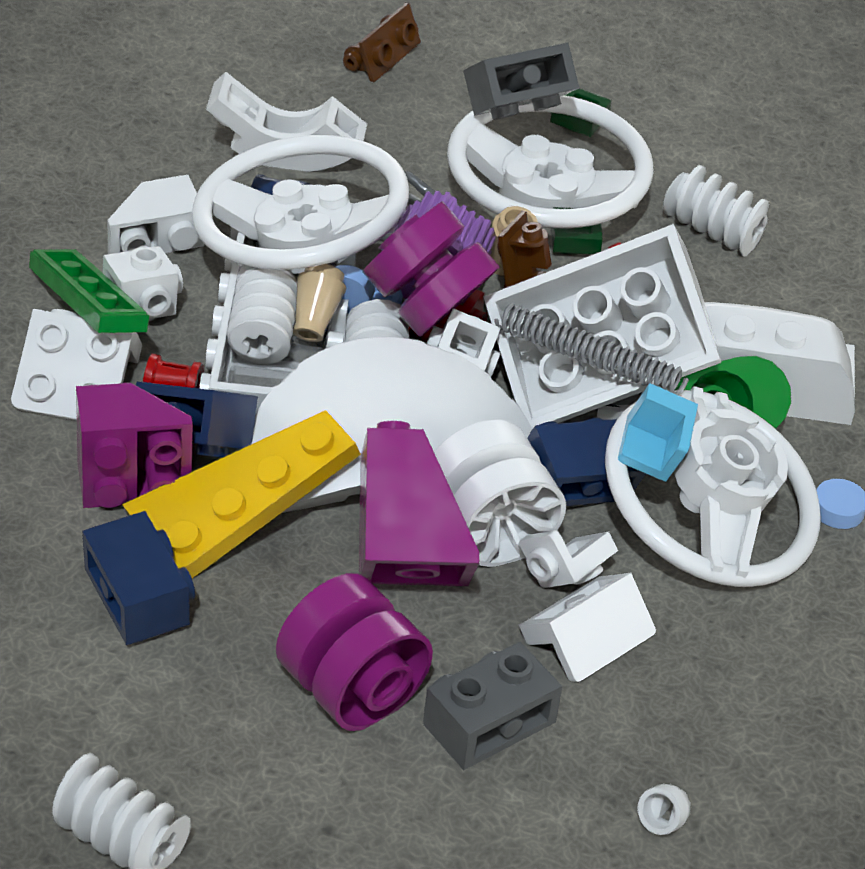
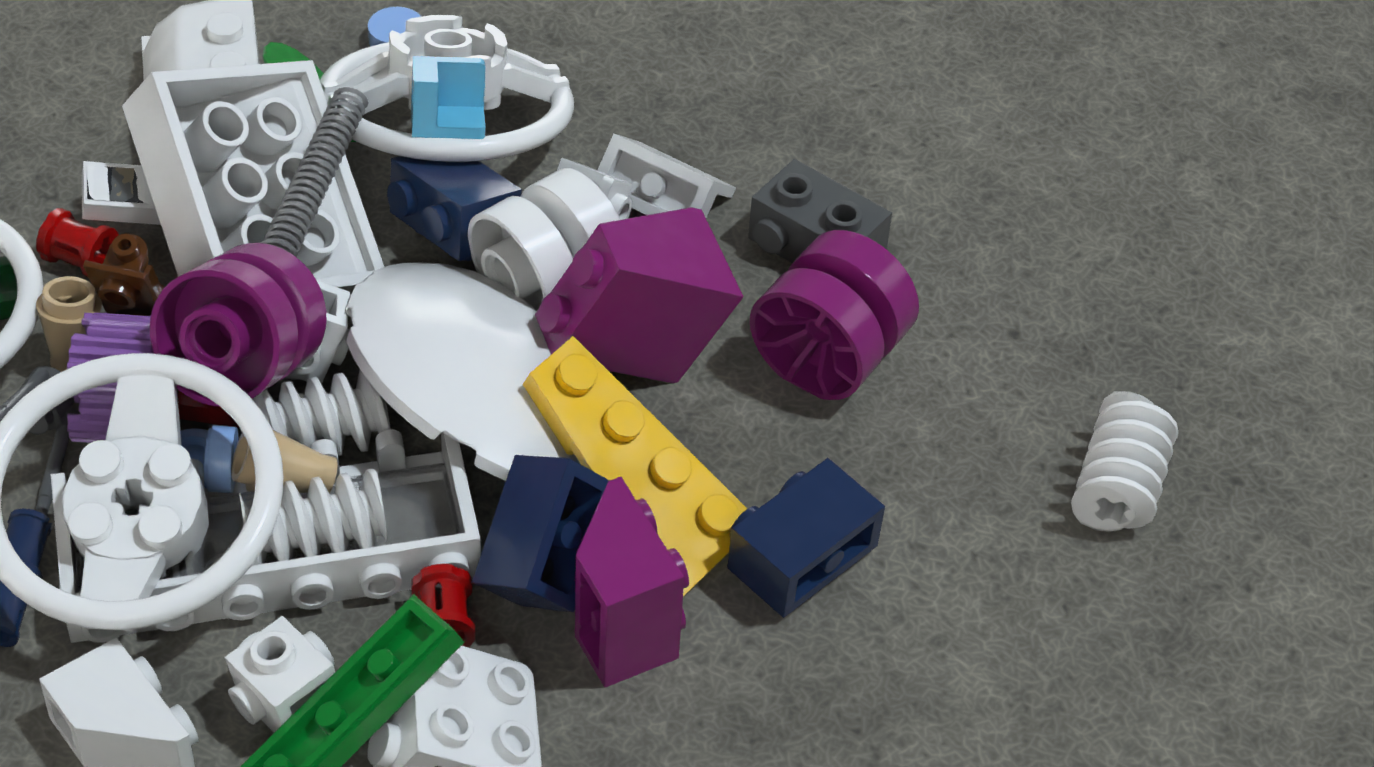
camera: 105 degrees left, 5 degrees up
(656, 802) = (869, 99): white hinge -> none

